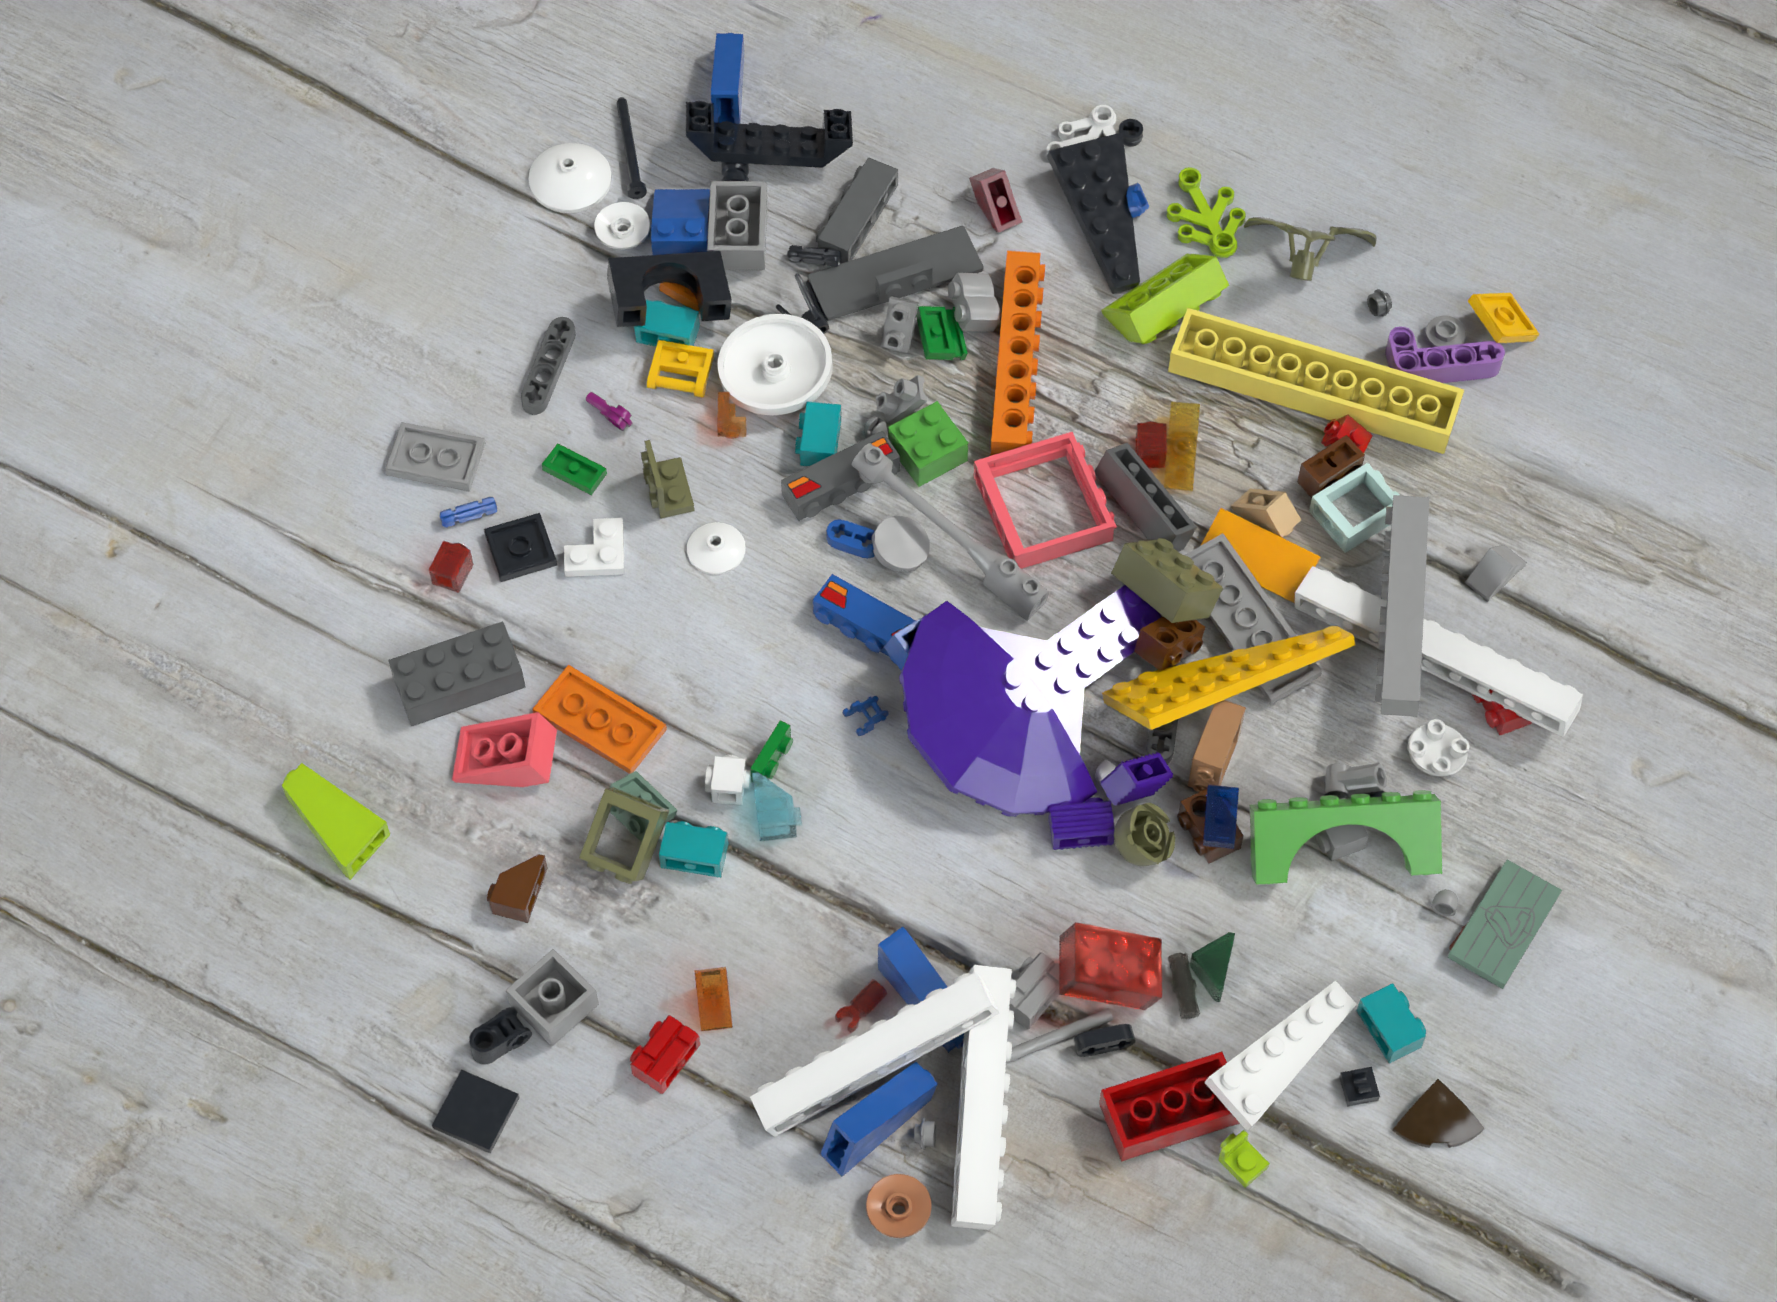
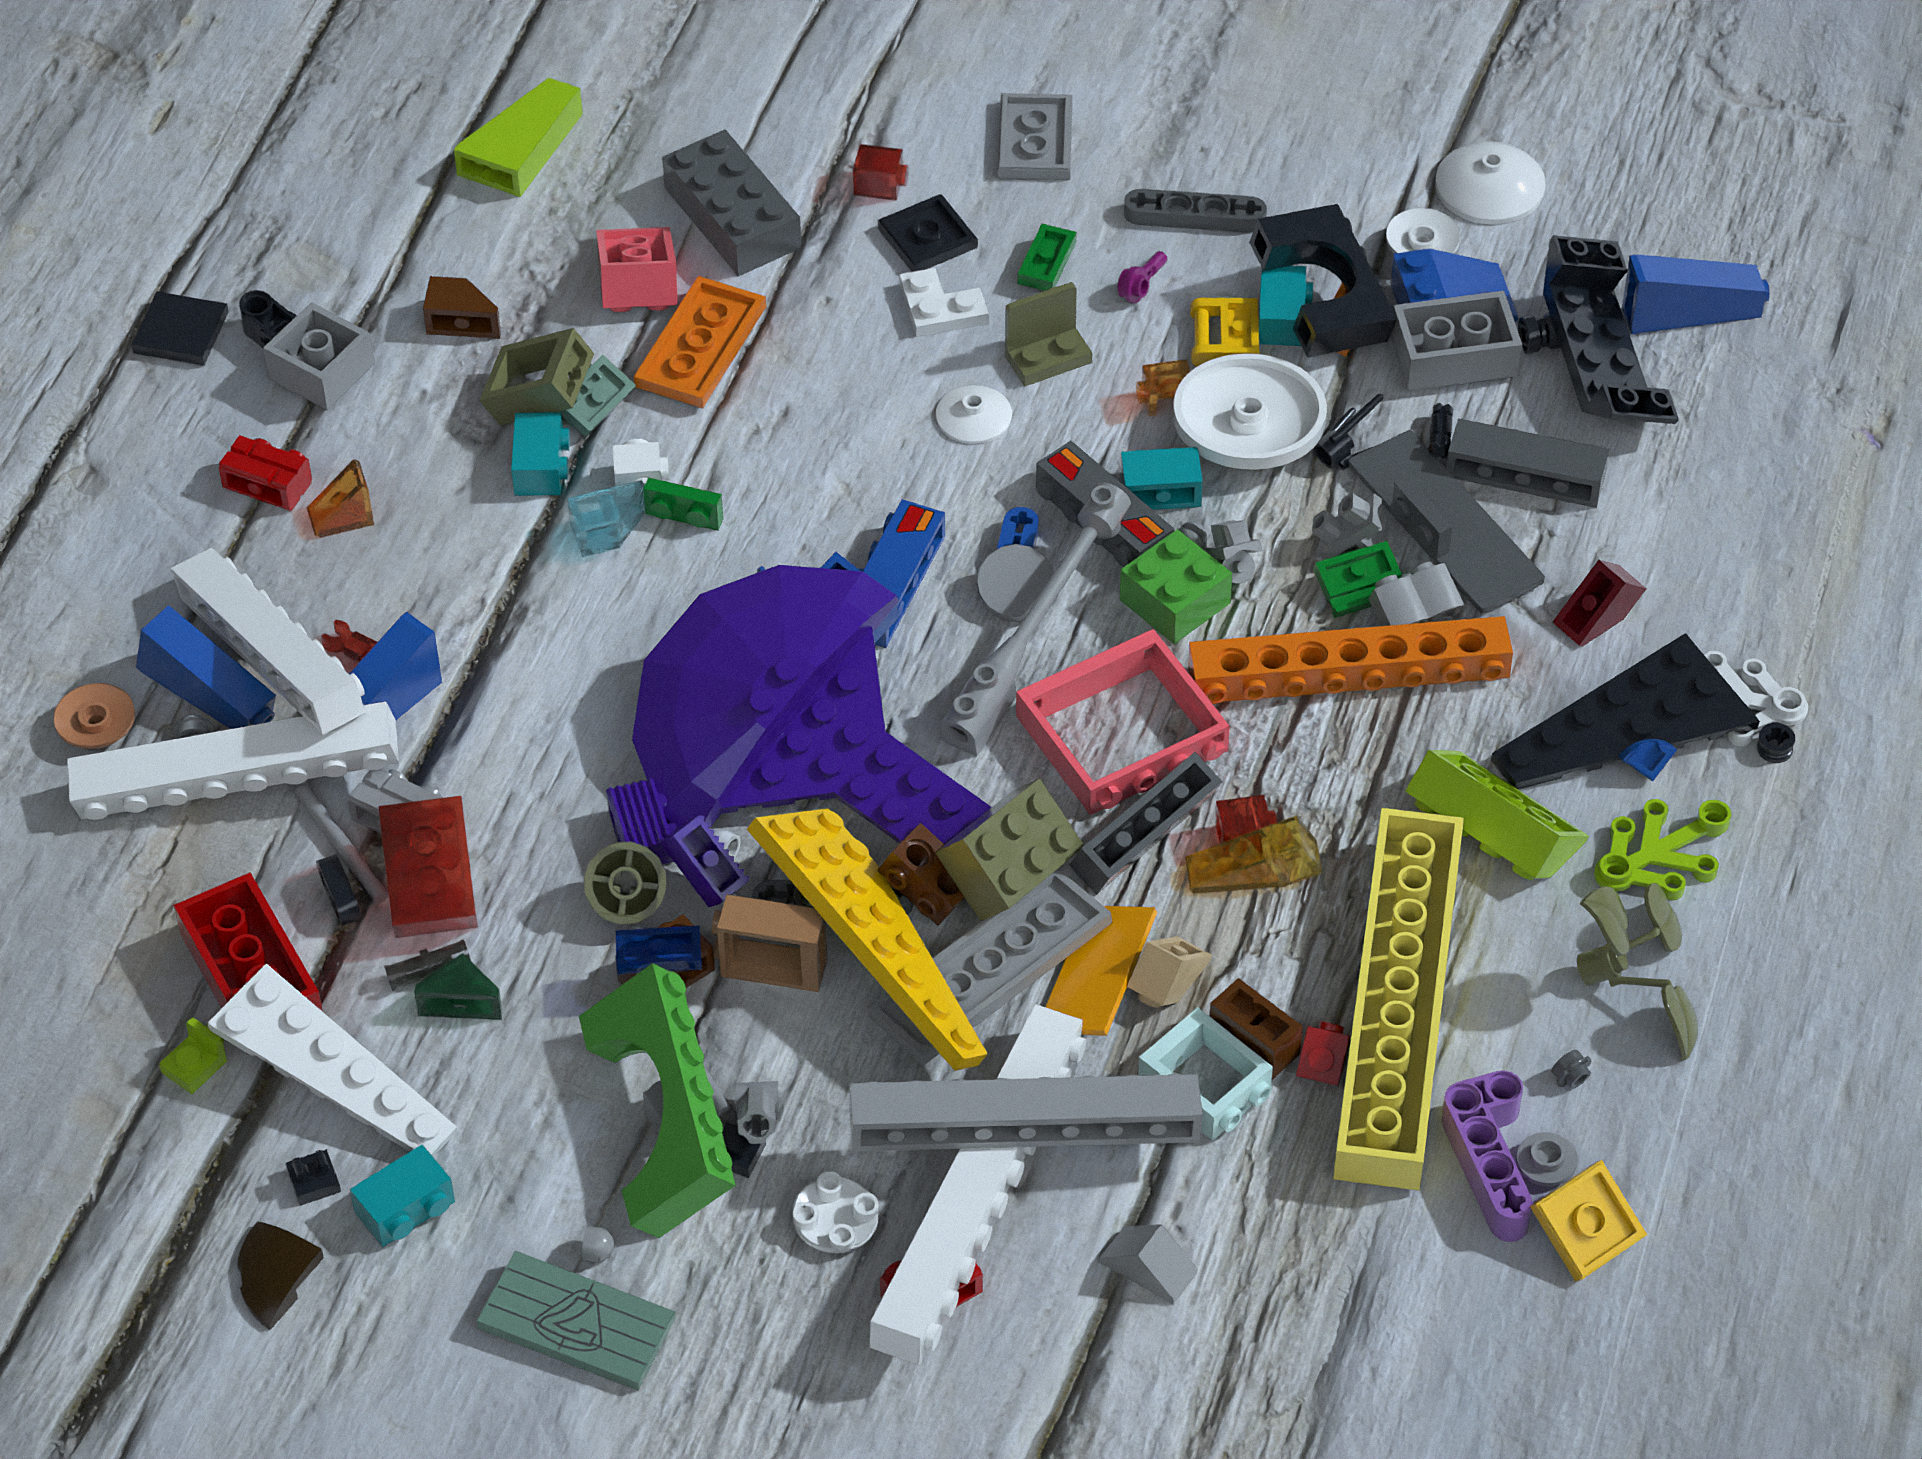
camera: 80 degrees right, 10 degrees down
(468, 511) = (963, 177): axle -> none
(636, 188) = (1491, 243): black bar -> none

